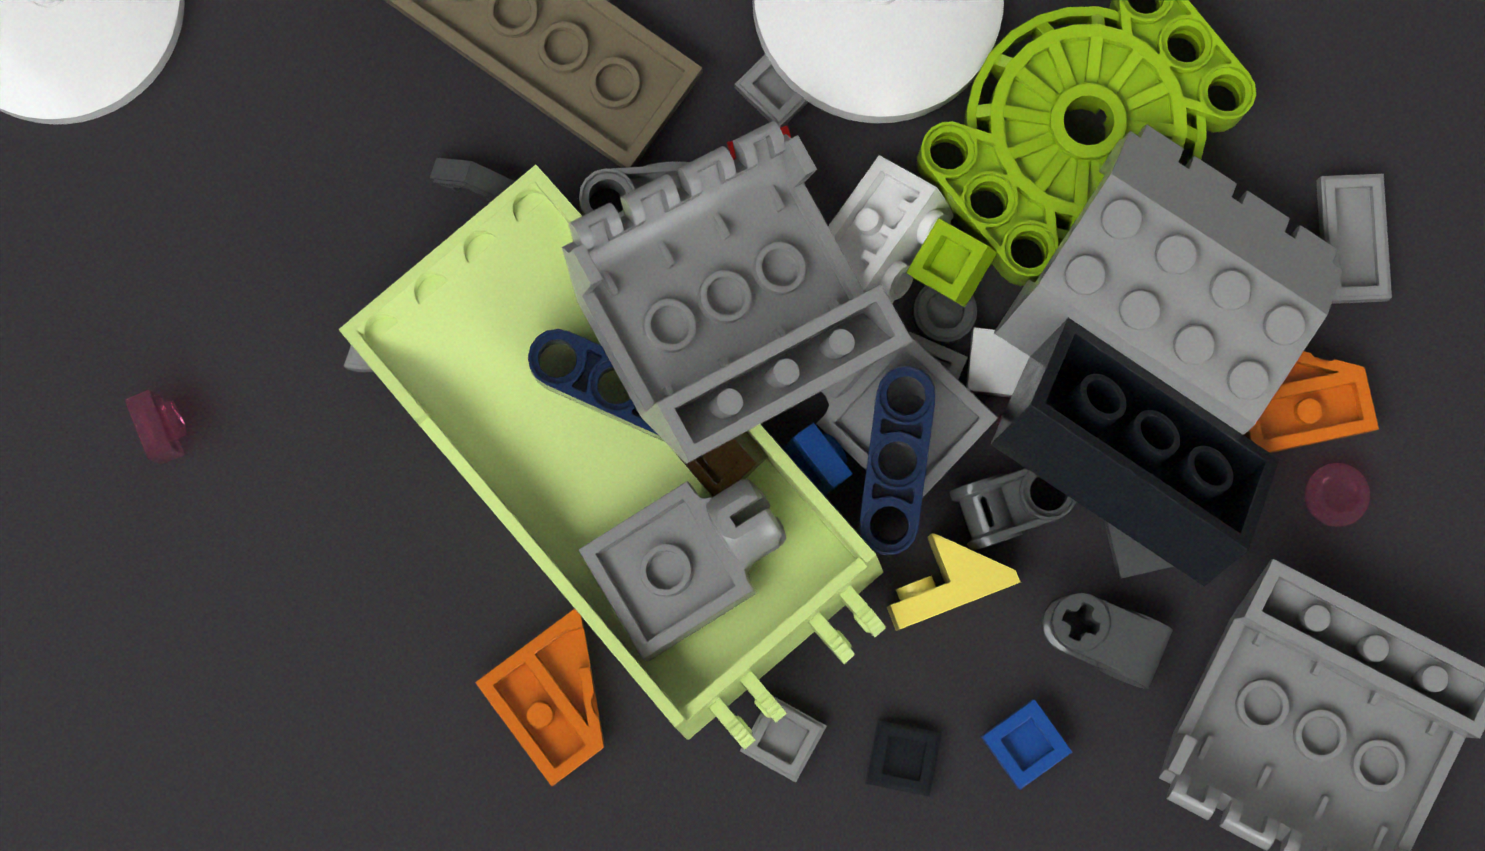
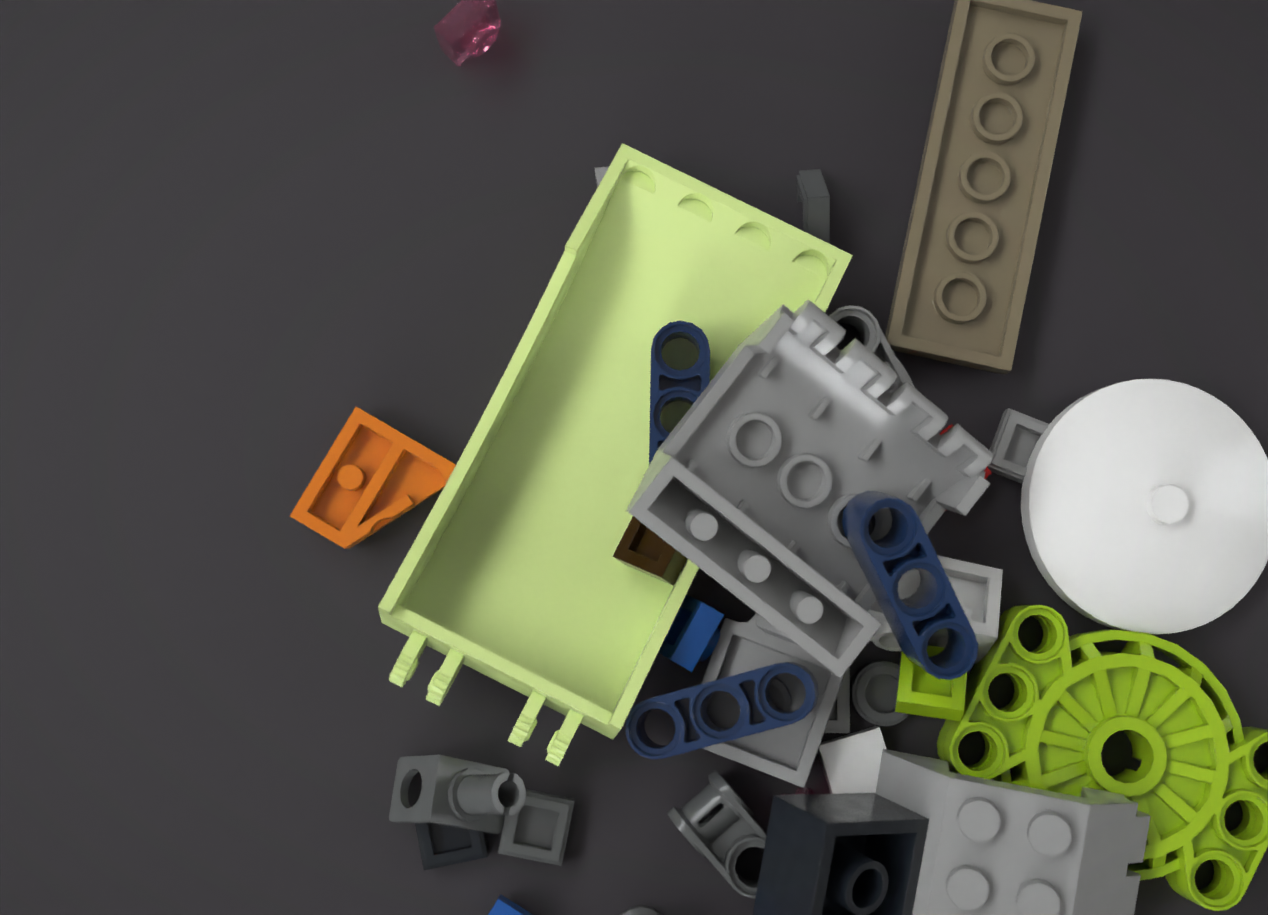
camera: 70 degrees right, 0 degrees up
(683, 561) = (543, 548): light grey plate -> none
(787, 743) = (419, 720): light grey tile -> none
(871, 735) = (456, 793): none -> dark grey bracket
(881, 229) = (934, 602): none -> dark blue beam
(932, 677) = (539, 828): none -> dark grey tile
(965, 577) = (636, 822): light yellow slope -> none

